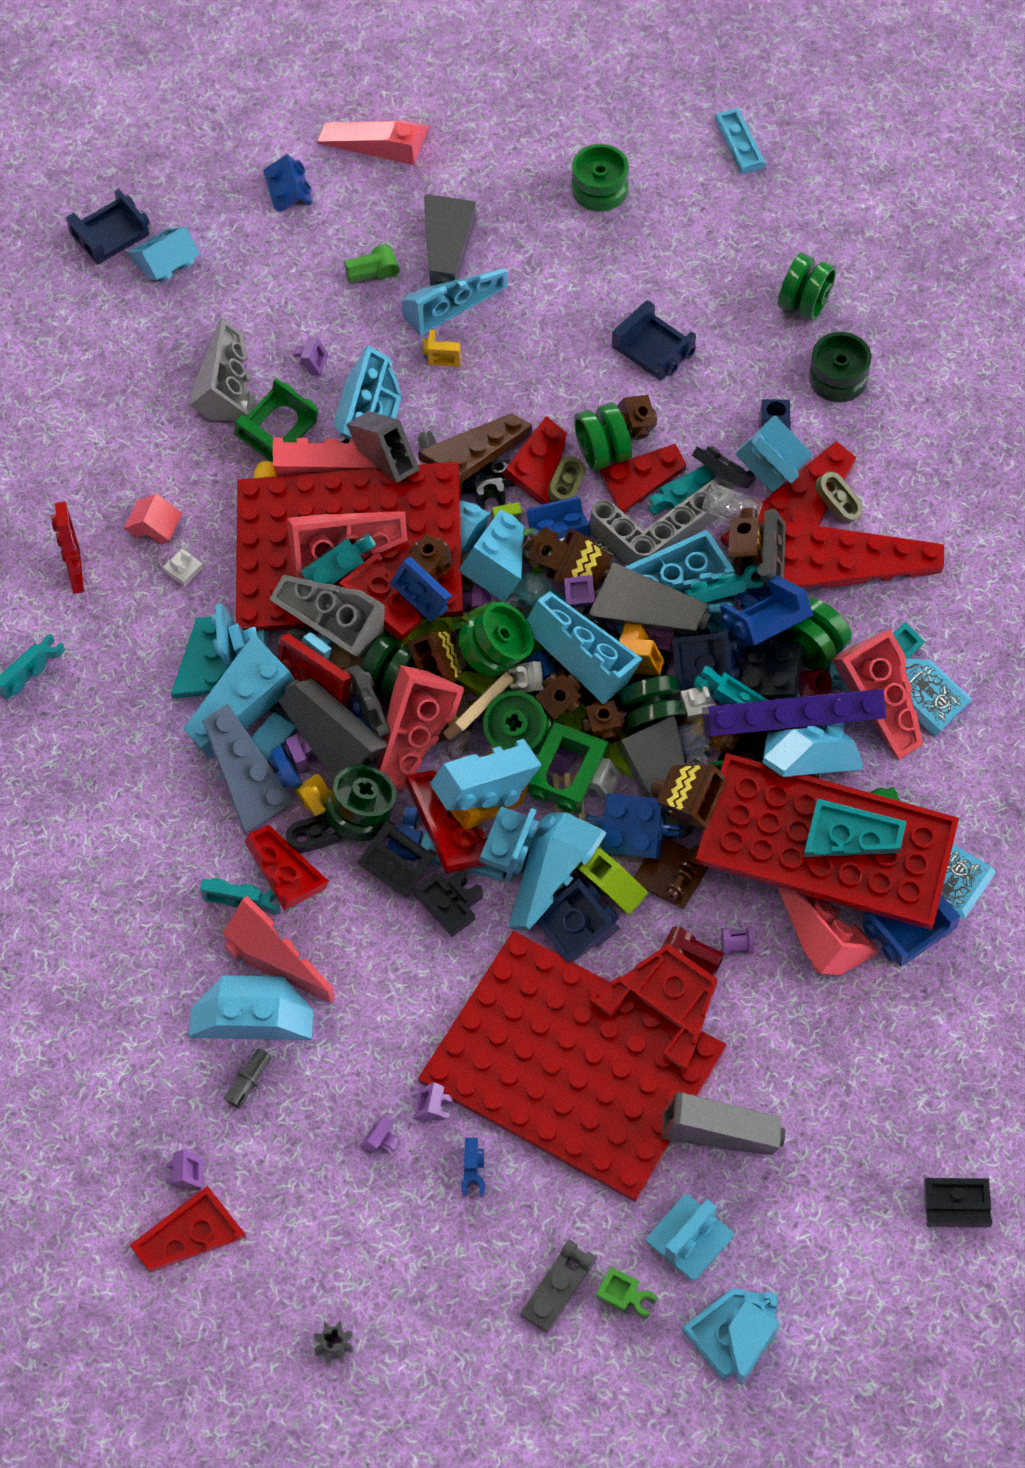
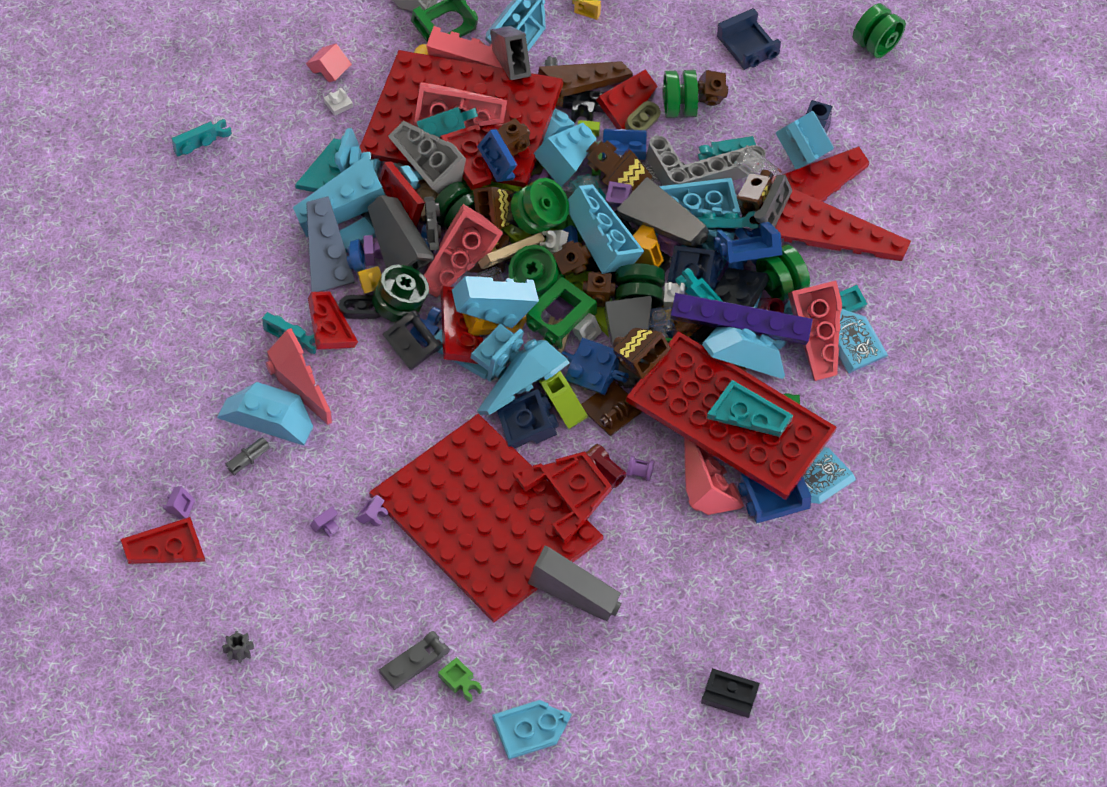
camera: 15 degrees right, 5 degrees down
(69, 545) = (260, 60): red wing -> none
(449, 901) = (440, 380): black plate -> none
(472, 1161) = (385, 557): blue plate -> none
(641, 475) = (698, 131): red wing -> none
(690, 1236) = (523, 656): medium azure bracket -> none
(727, 468) = (765, 141): black plate -> none
(748, 1337) = (536, 733): medium azure slope -> none
(839, 496) = (844, 184): olive plate -> none
(840, 366) = (881, 94): dark green wheel -> none

